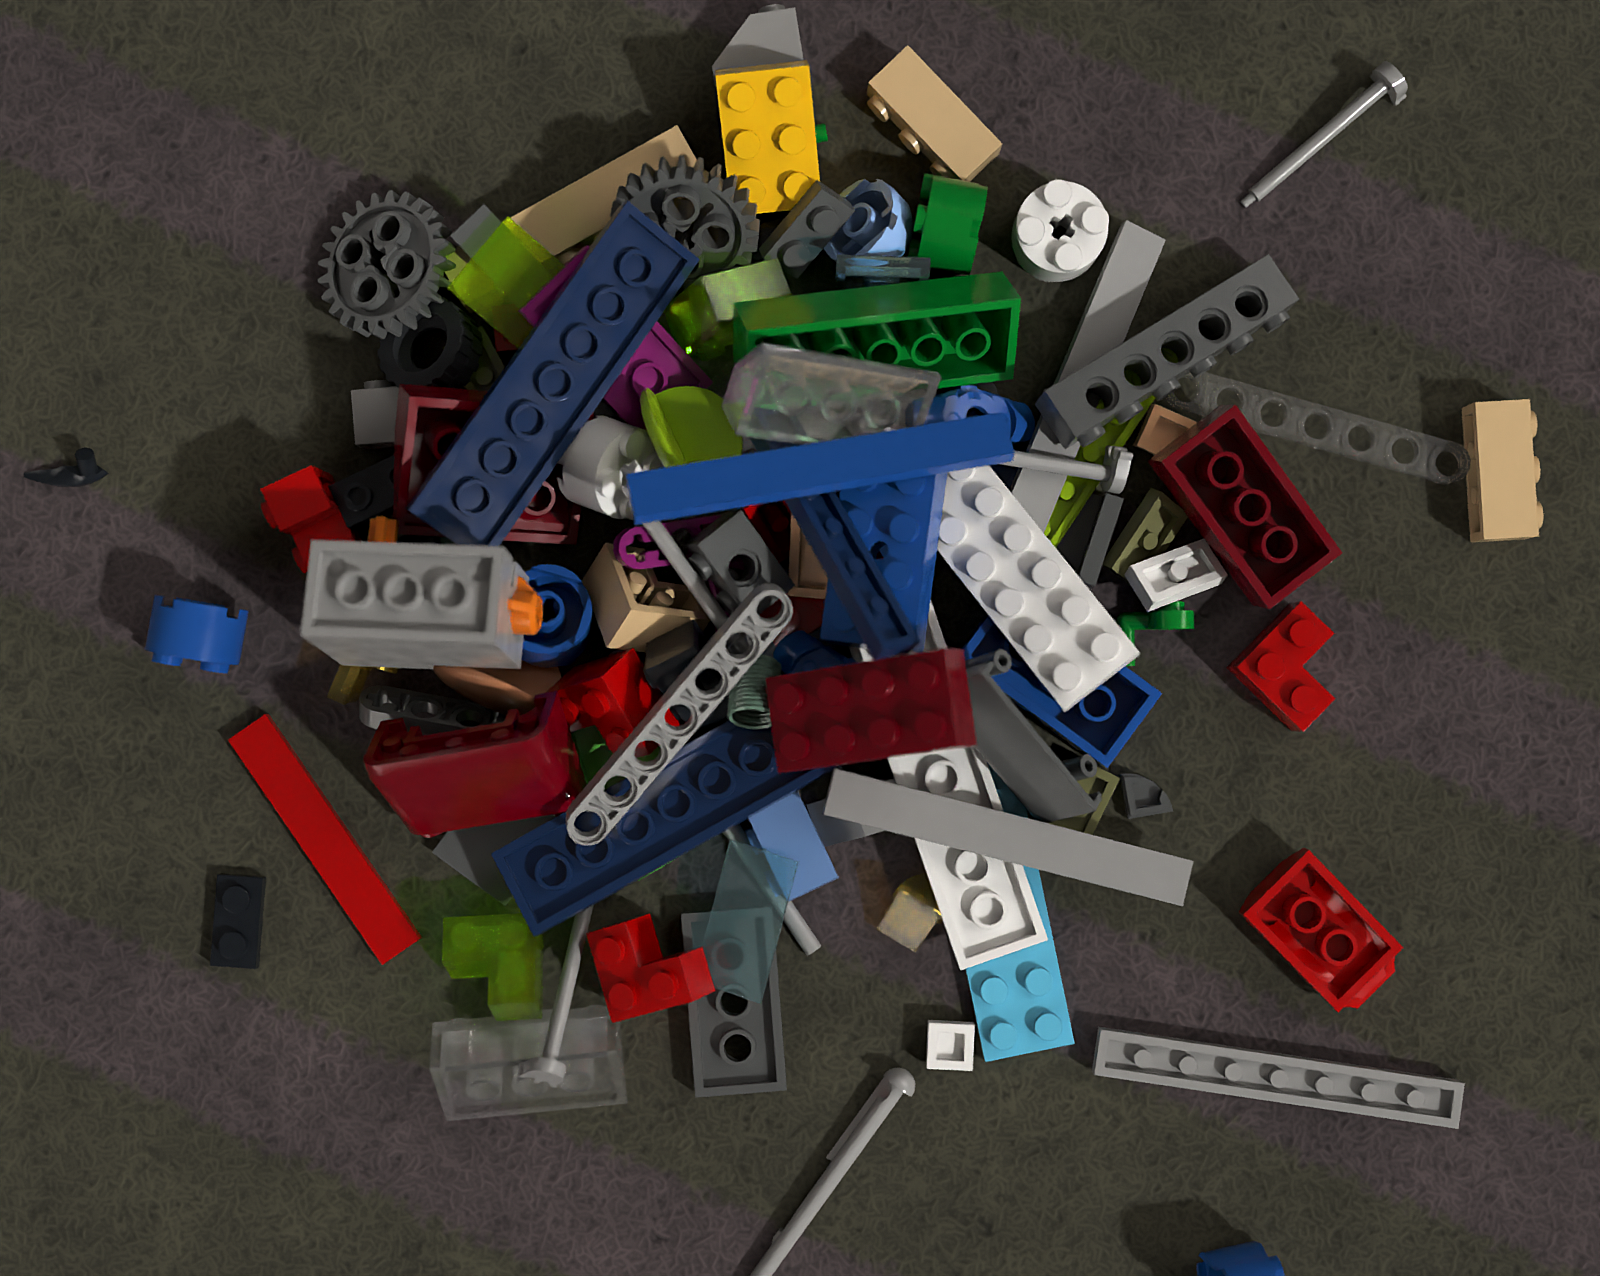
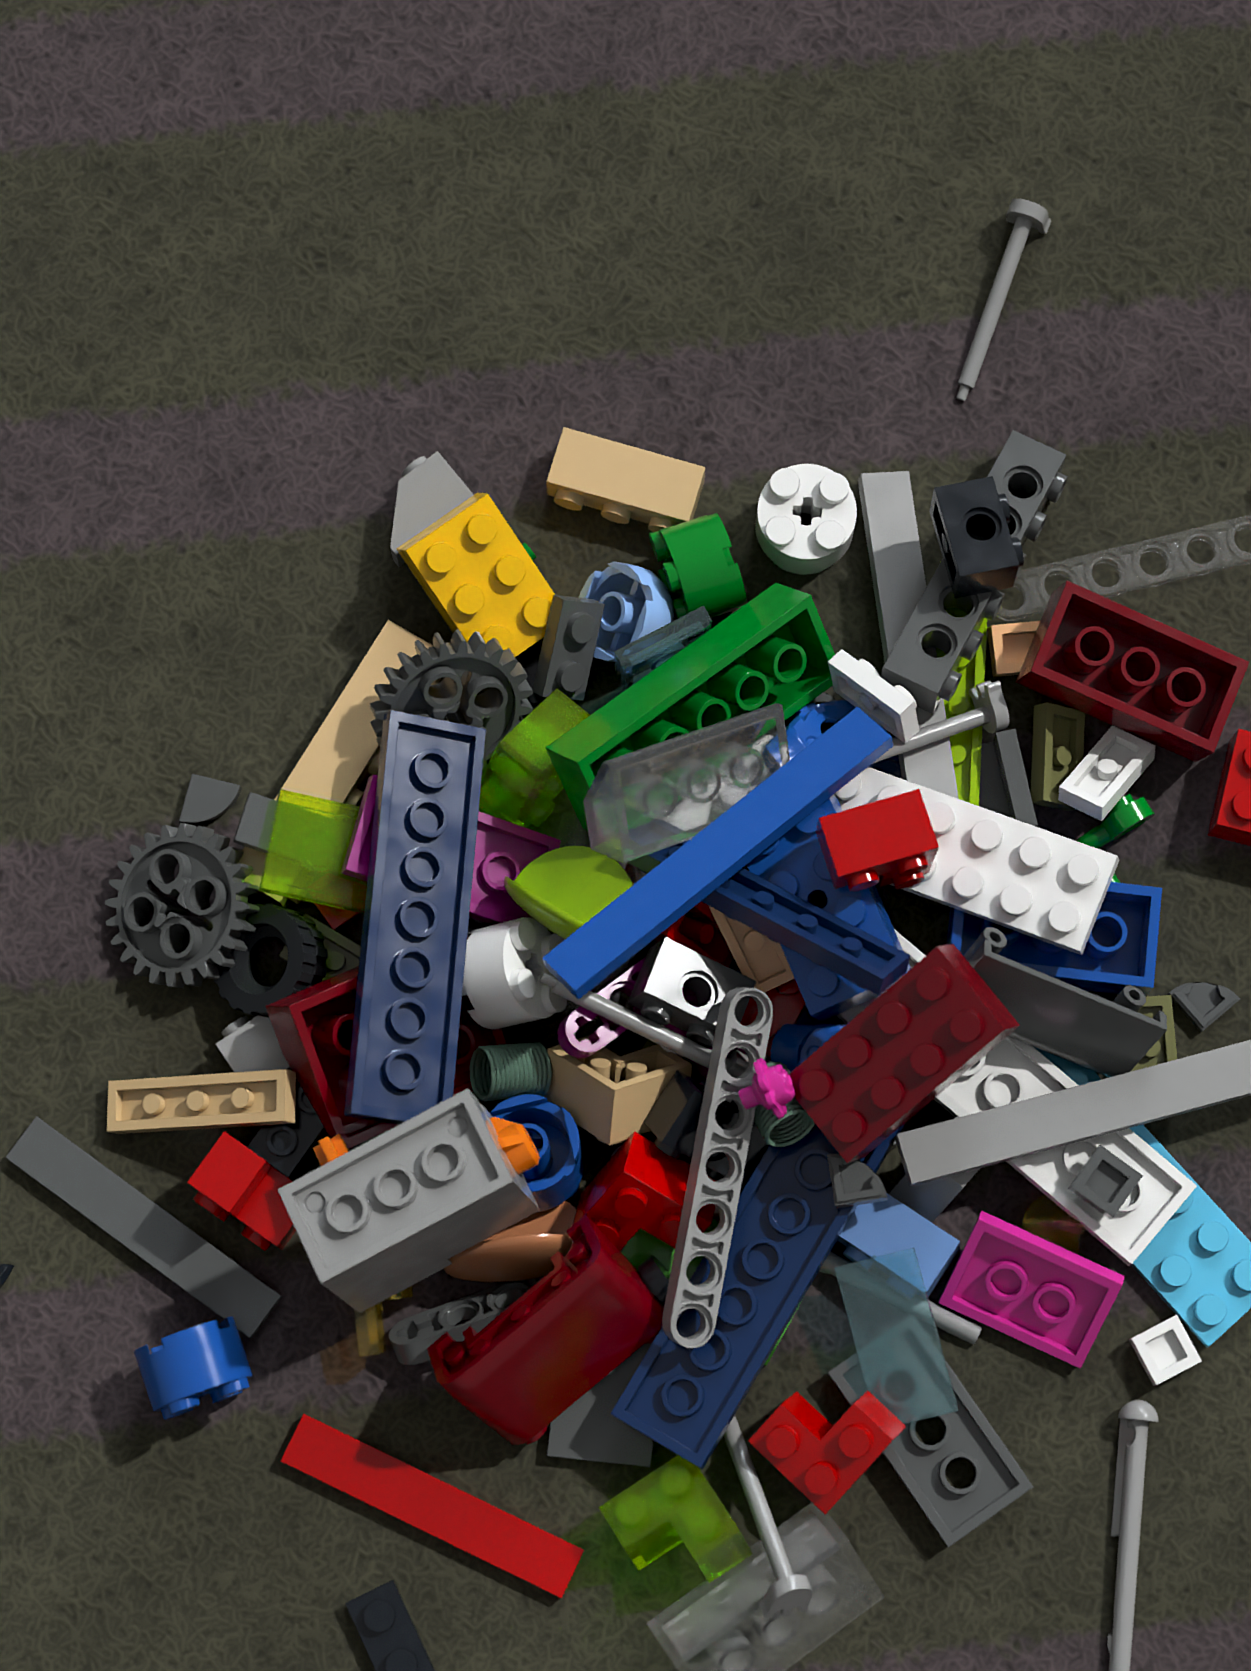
camera: 30 degrees left, 10 degrees down
(223, 499) = (143, 1227): none -> dark grey tile
(314, 430) = (201, 1101): none -> tan plate
(457, 190) = (207, 799): none -> dark grey tile
(567, 543) = (510, 1071): none -> sand green piece
(586, 767) = (655, 1277): none -> black tile
(750, 680) = (770, 1088): none -> dark pink plant
(779, 788) = (854, 1183): none -> dark grey tile
(873, 942) = (1031, 1289): none -> dark pink plate
(953, 532) = (879, 843): none -> red brick
(976, 898) = (1105, 1182): none -> dark grey plate
(1021, 398) = (863, 687): none -> white plate
(1166, 346) = (974, 564): none -> black brick

